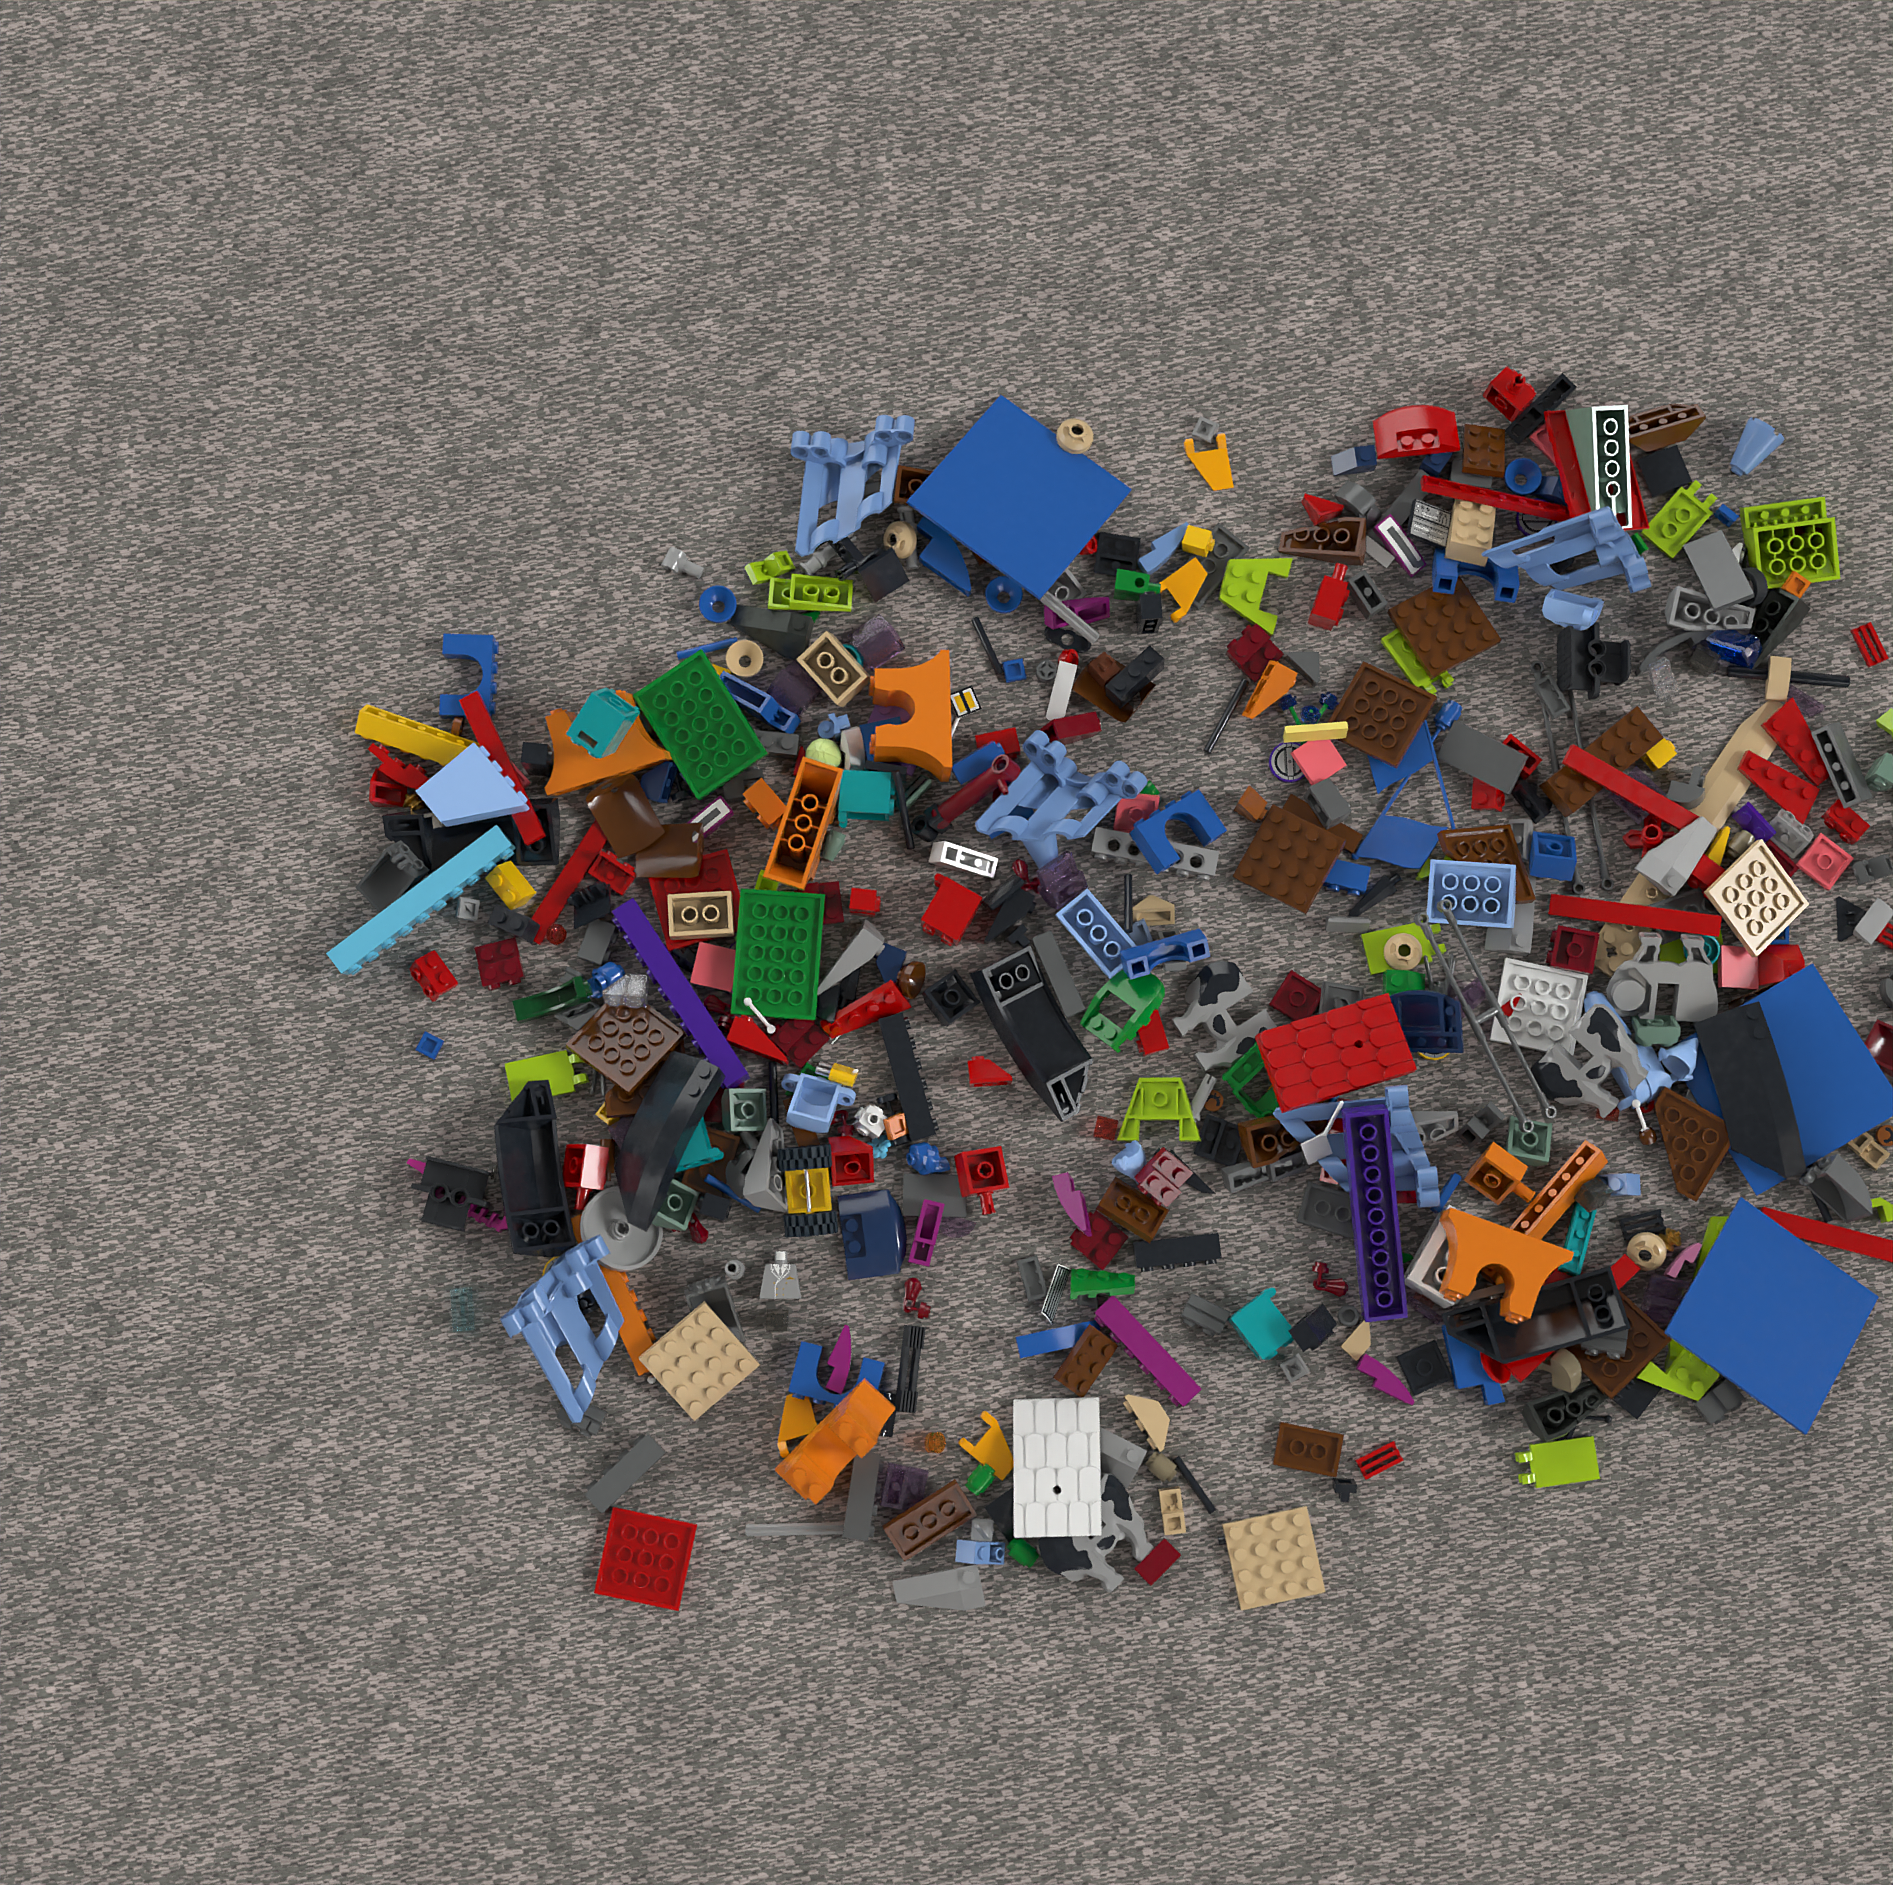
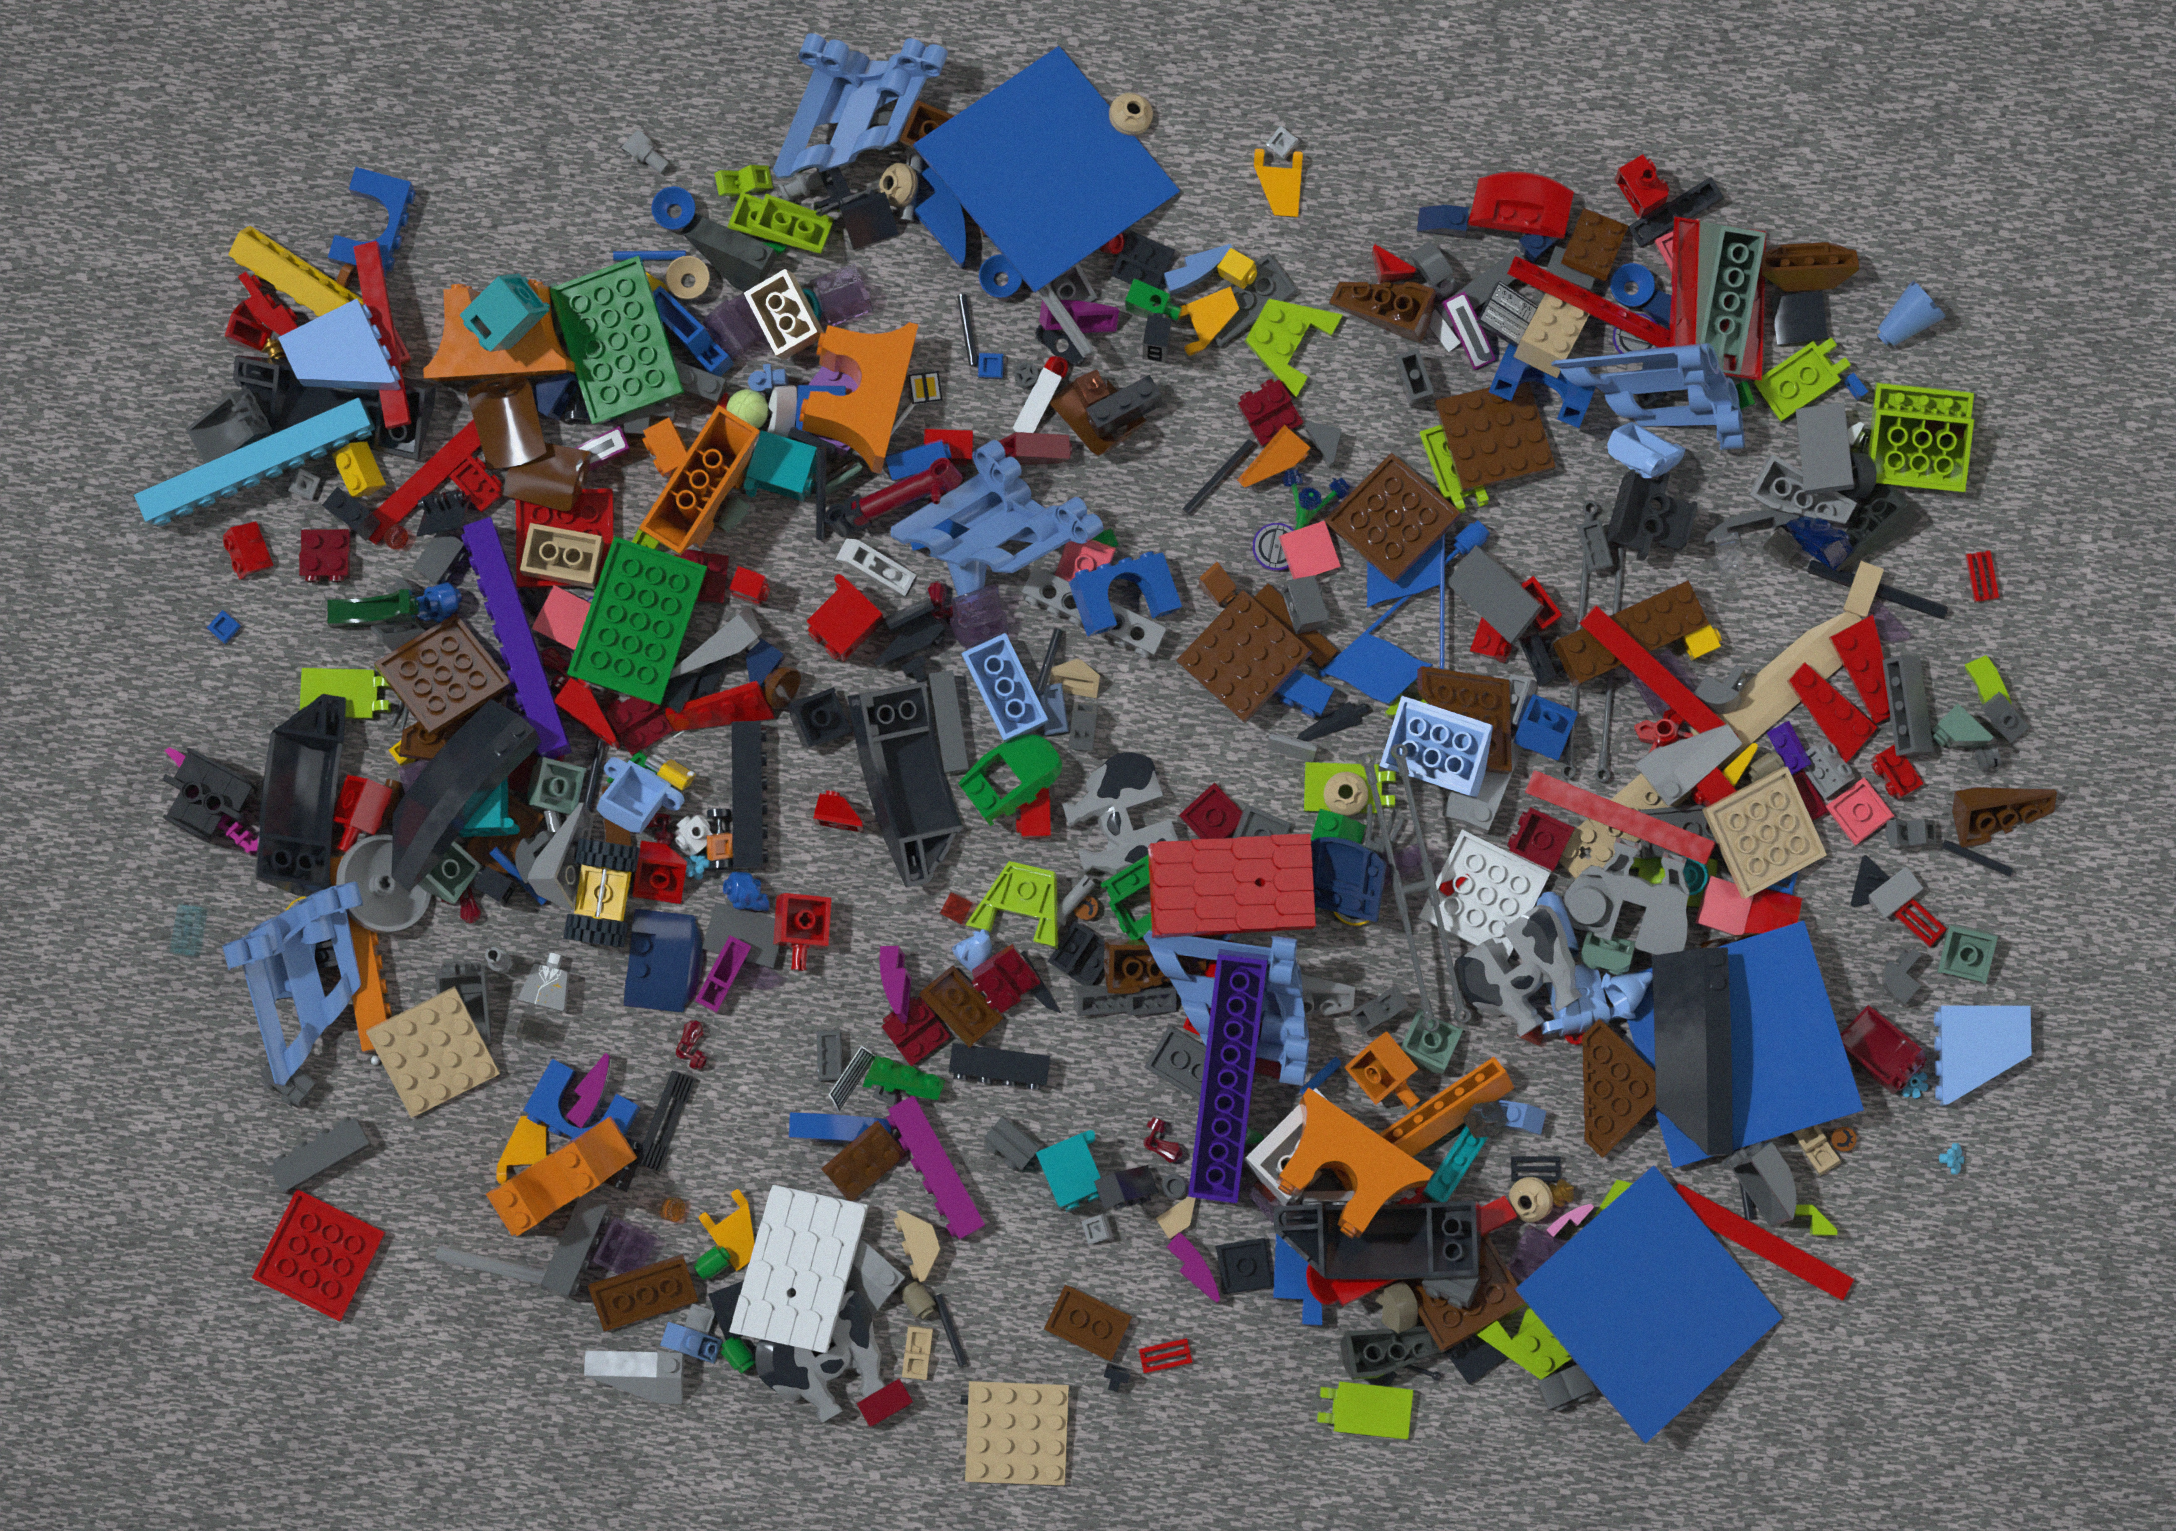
camera: 20 degrees right, 0 degrees up
(537, 759) = (423, 334): black brick -> none
(629, 990) = (459, 620): clear slope -> none
(770, 1028) = (607, 702): white hinge -> none
(1143, 958) = (1046, 726): blue arch -> none
(1315, 732) = (1311, 519): light yellow tile -> none
(1319, 1146) = (1185, 986): white piece -> none
(1329, 599) = (1369, 372): red brick -> none
(1646, 1134) = (1568, 1068): hinge -> none
(1796, 584) = (1911, 486): orange tile -> none

